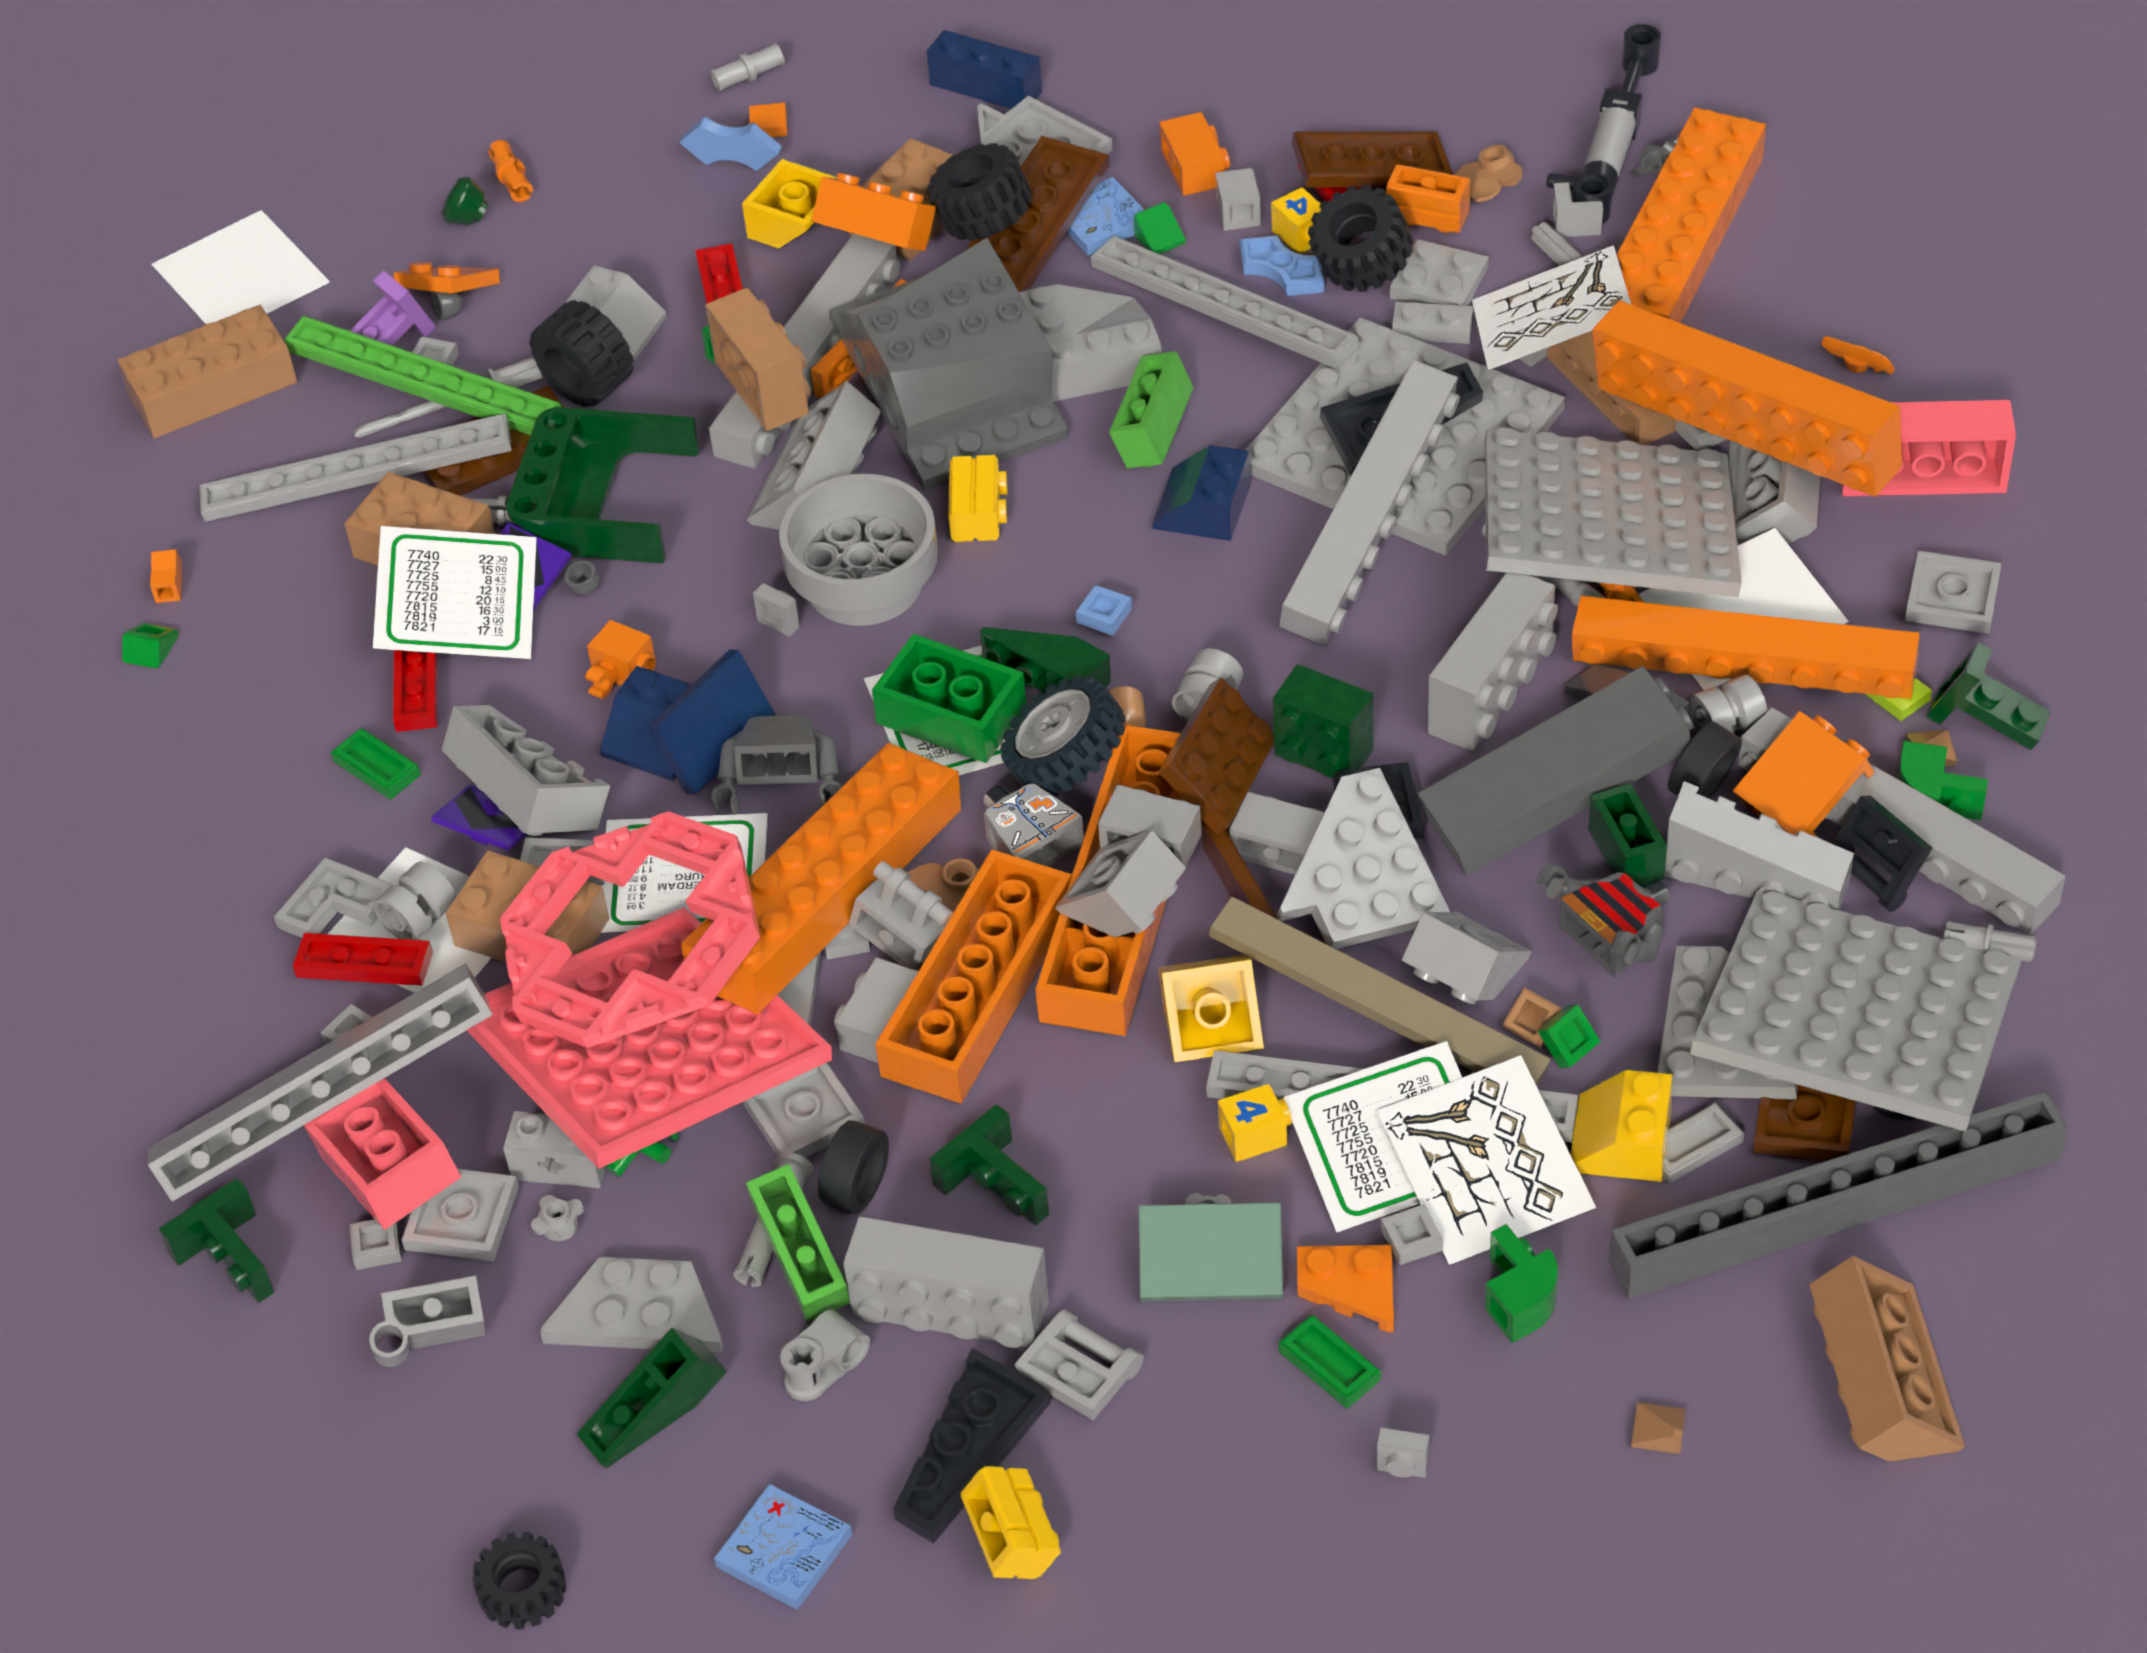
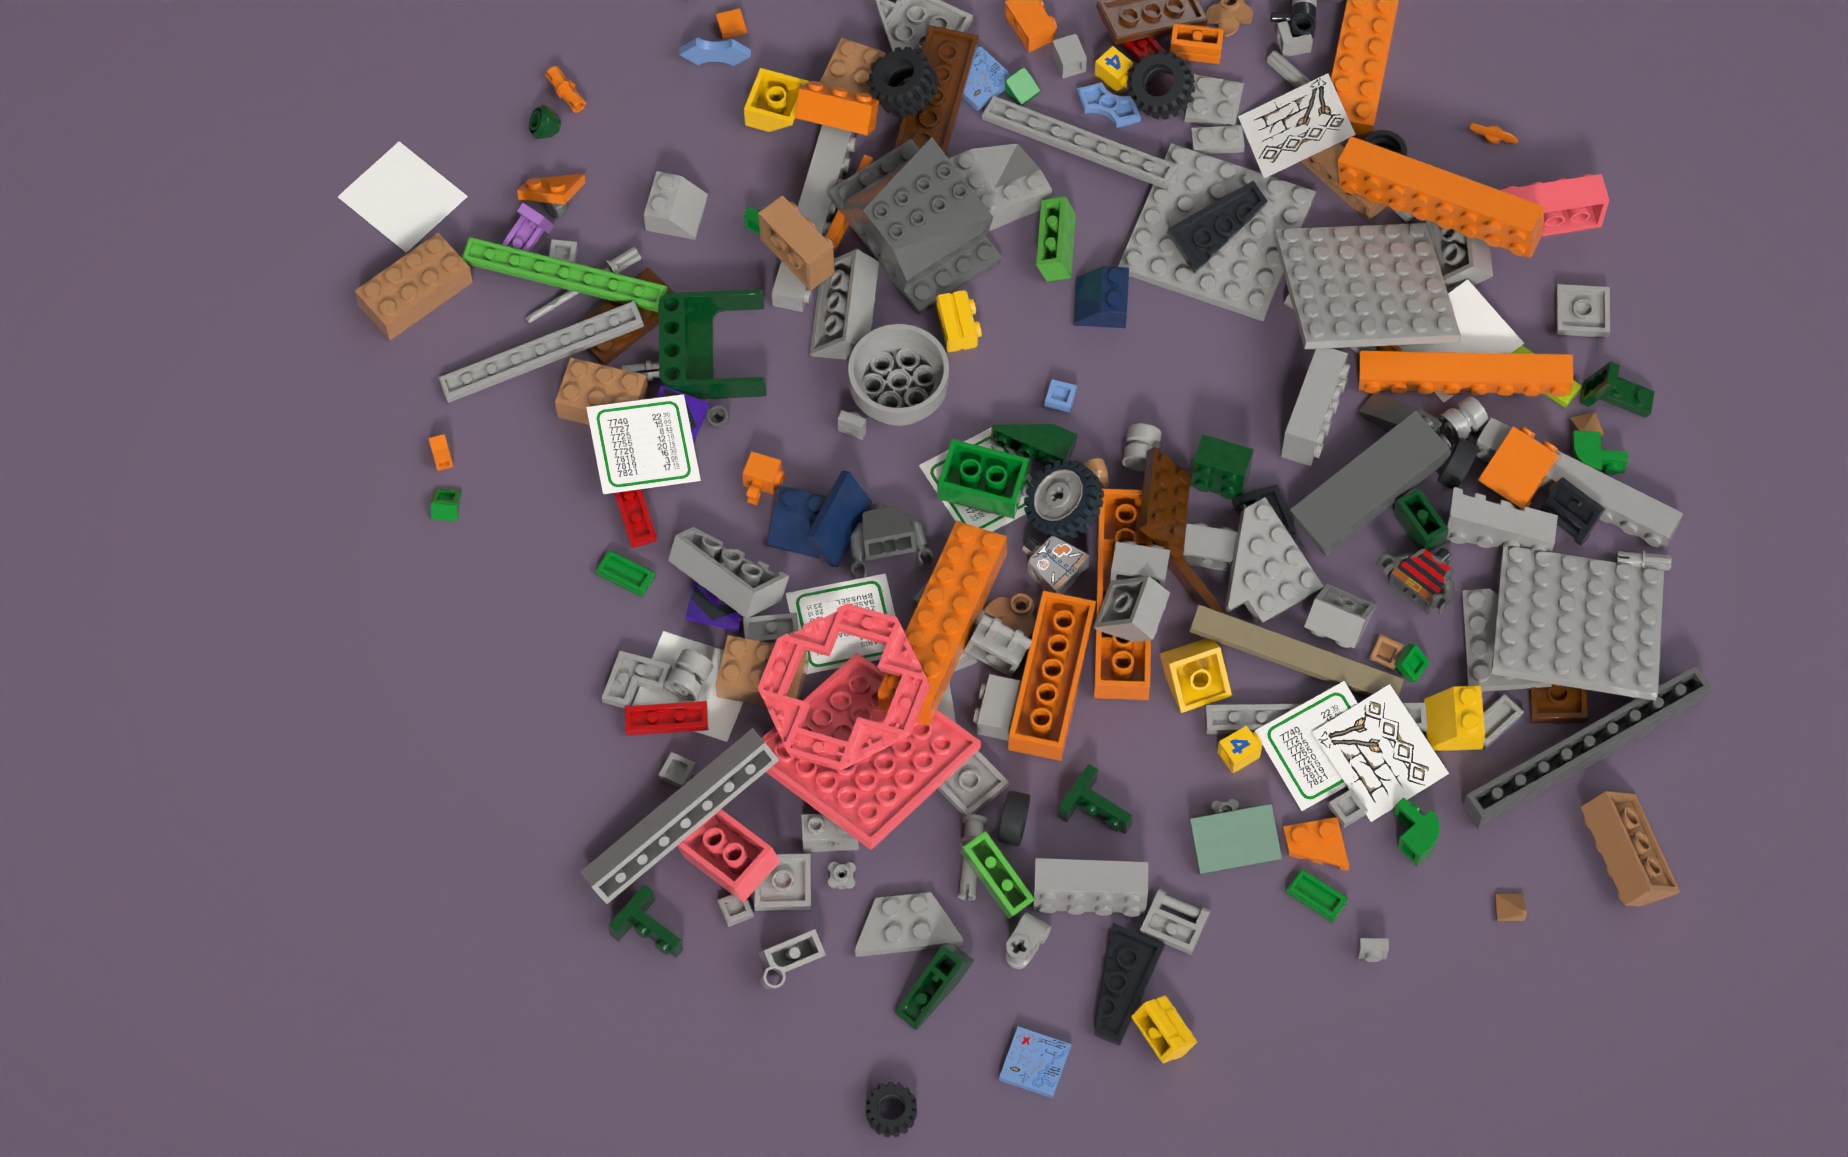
camera: 15 degrees left, 15 degrees up
(581, 353) = (670, 245): black tyre -> none
(718, 271) = (742, 172): red plate -> none
(1369, 502) = (1214, 297): light grey brick -> none

